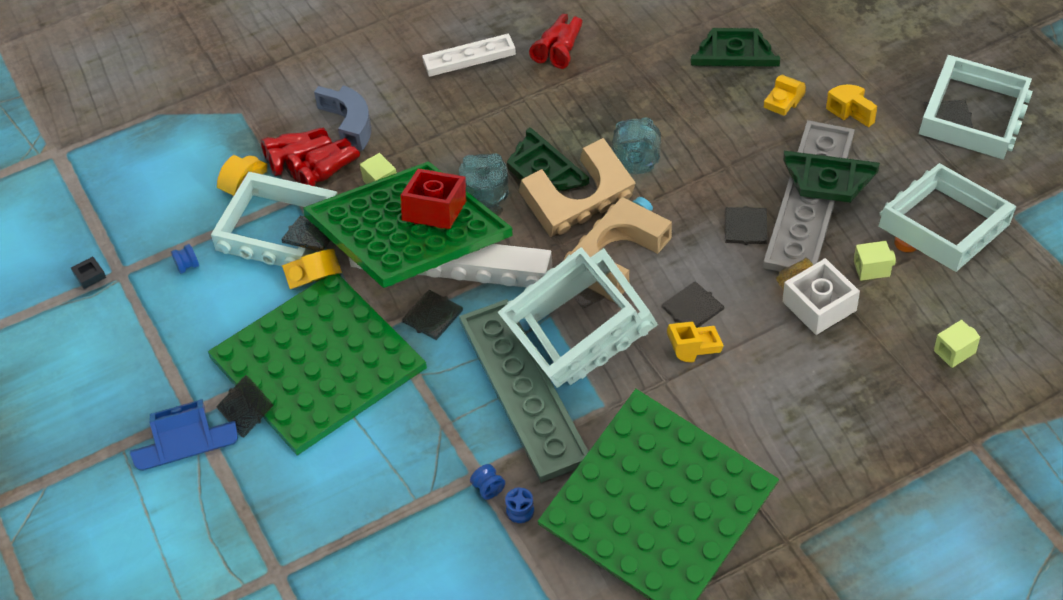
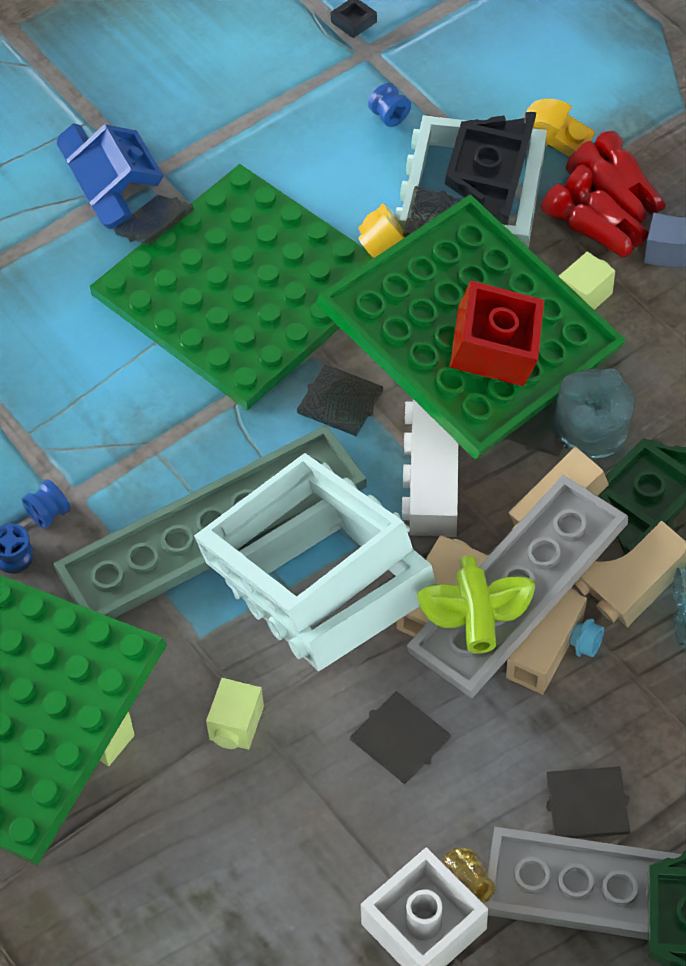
camera: 80 degrees right, 5 degrees up
(272, 198) = (490, 161): none -> black wing
(614, 221) = (549, 546): none -> light grey plate
(629, 233) = (476, 603): none -> lime plant
(672, 382) = (235, 714): none -> yellowish green brick
(693, 341) = (313, 734): yellow brick -> none

